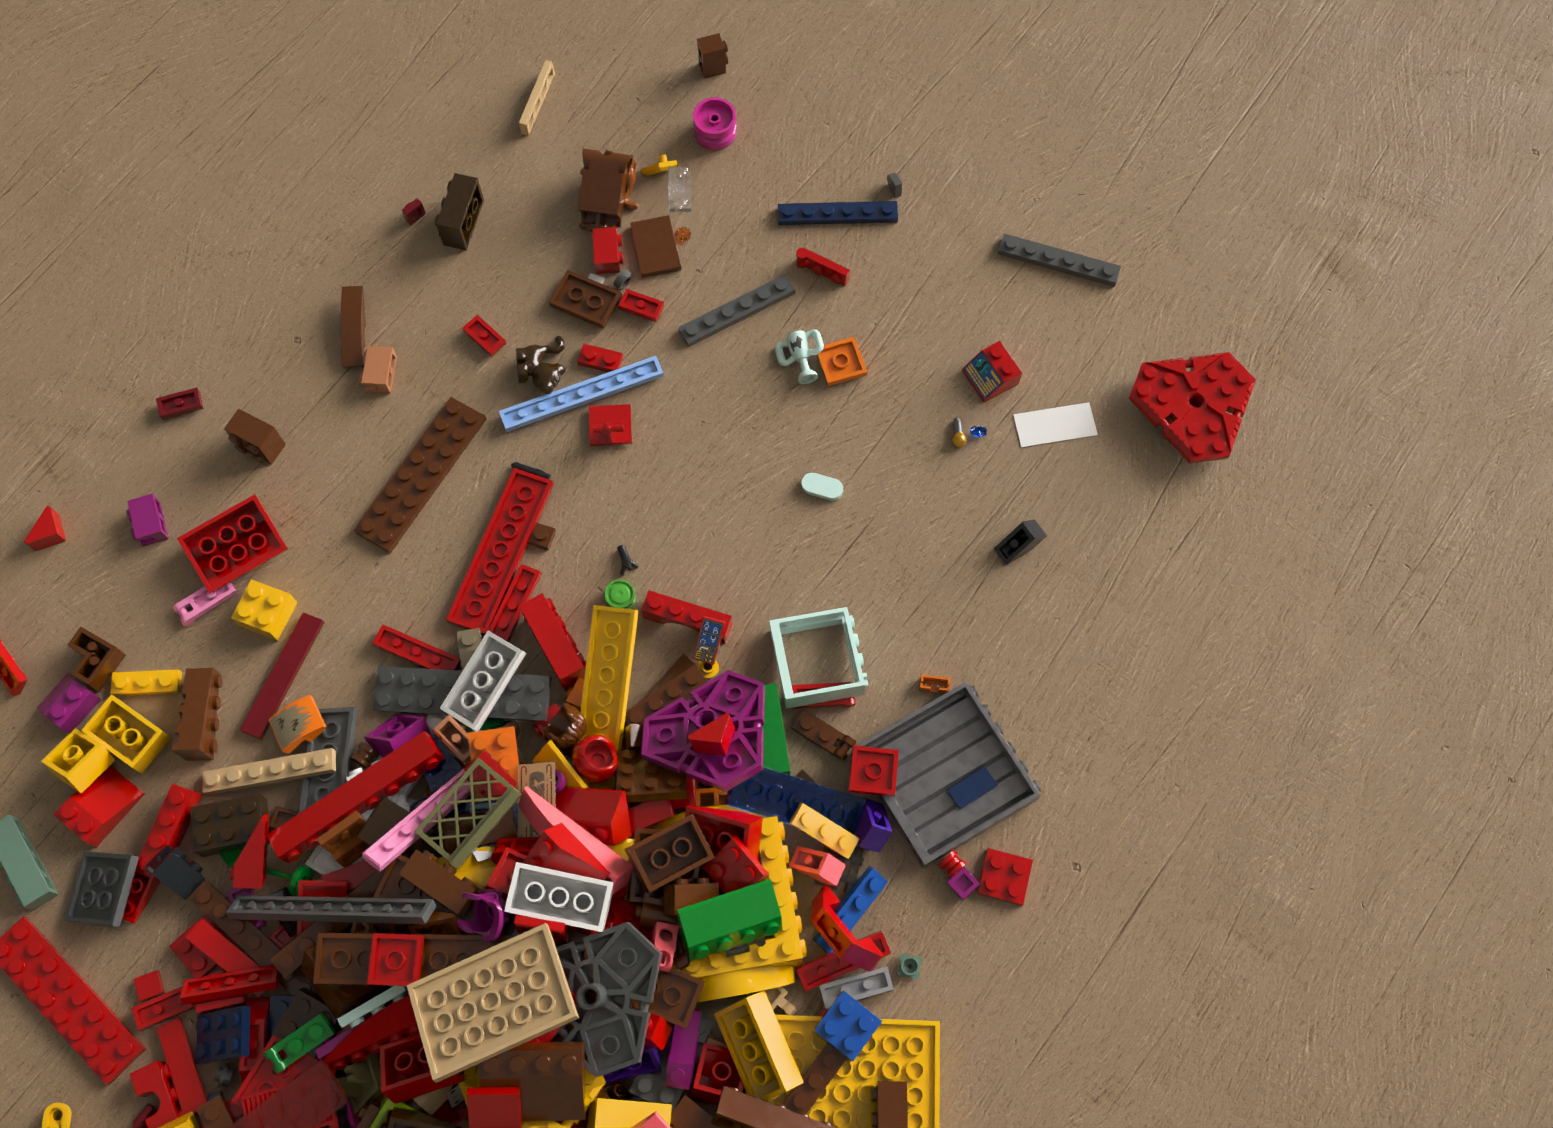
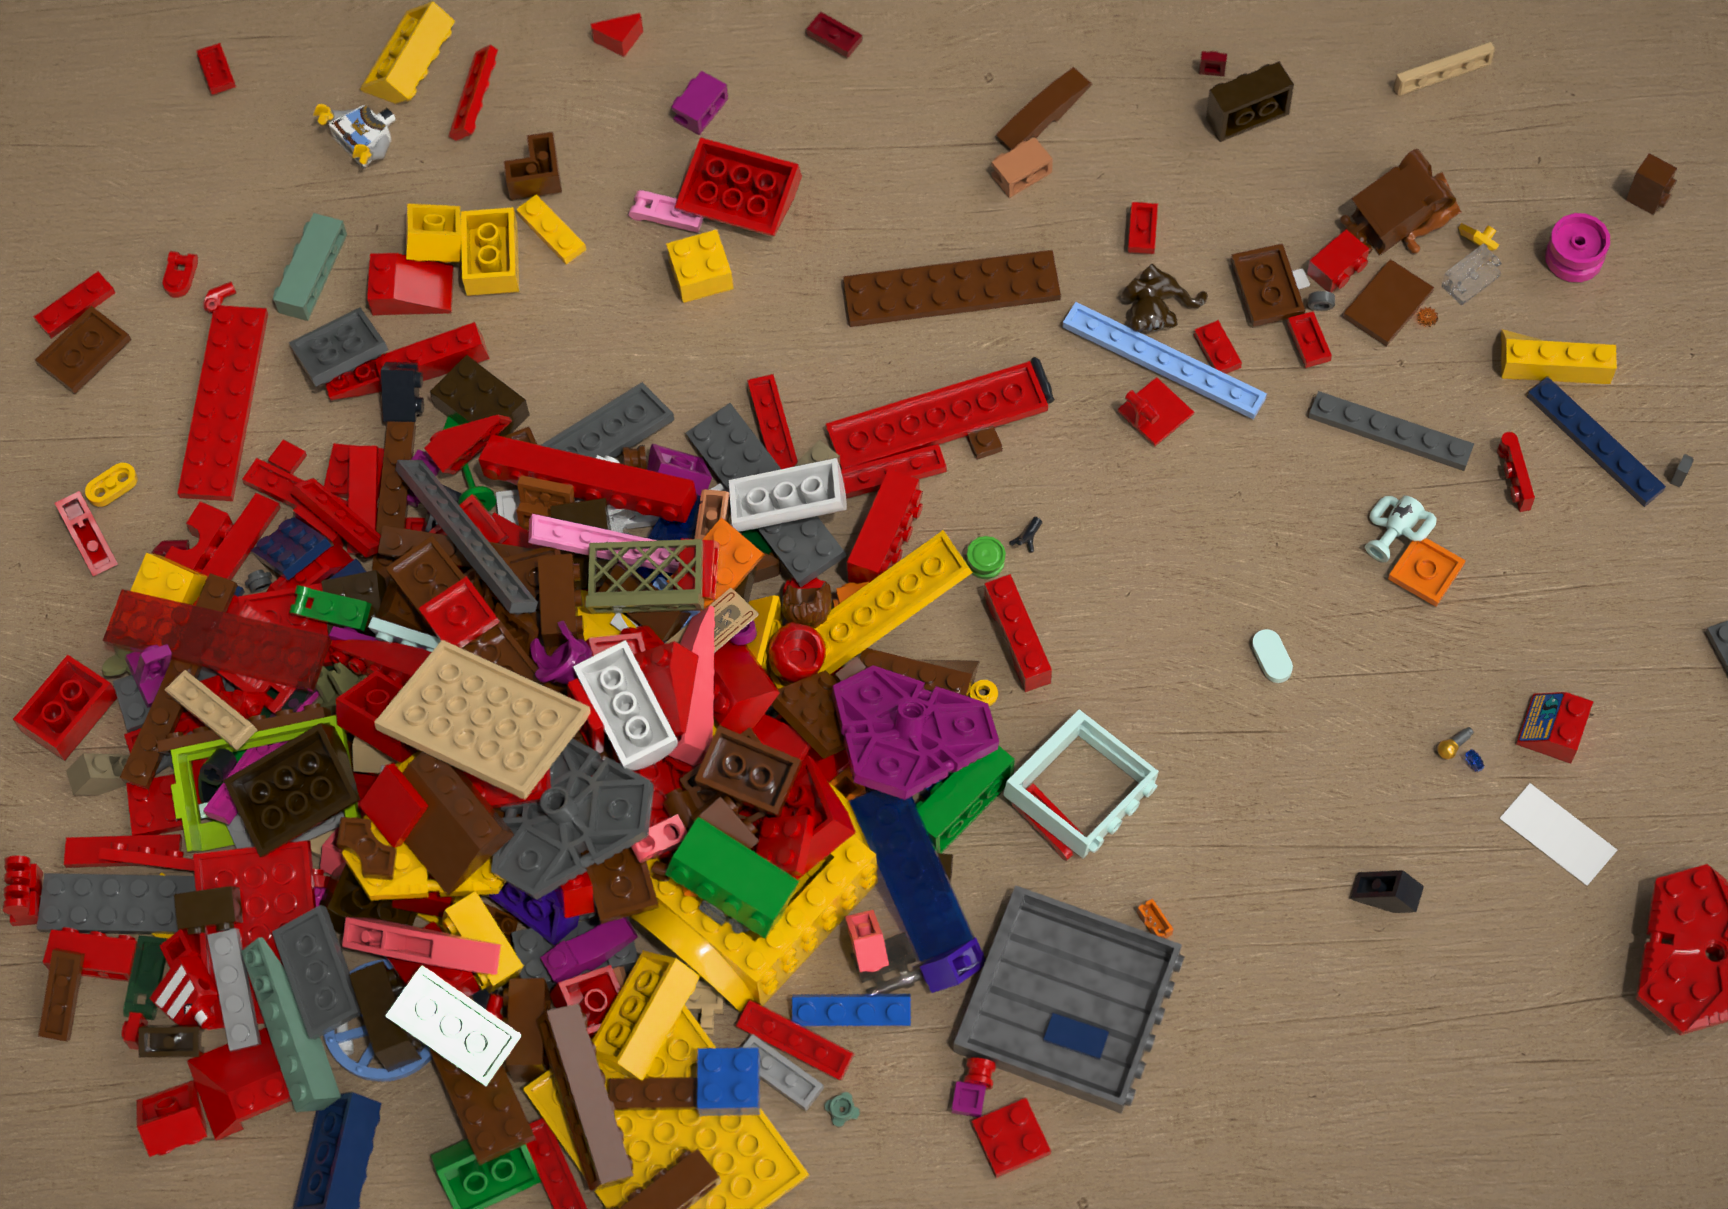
camera: 55 degrees right, 5 degrees down
(68, 704) = (478, 185): magenta slope -> none
(199, 715) = (556, 294): reddish brown wedge -> none
(254, 437) = (854, 120): reddish brown brick -> none
(269, 771) = (554, 394): tan plate -> none
(282, 675) = (653, 332): dark red tile -> none
(297, 723) = (617, 379): slope -> none
(708, 640) = (1007, 667): tile -> none
(713, 737) = (901, 731): red slope -> none
(764, 198) = (1536, 359): none -> yellow wedge
(822, 734) = (1008, 851): reddish brown plate -> none
(824, 830) = (905, 919): yellow plate -> none
(859, 953) = (811, 1042): red slope -> none
(874, 771) = (1006, 921): red plate -> none

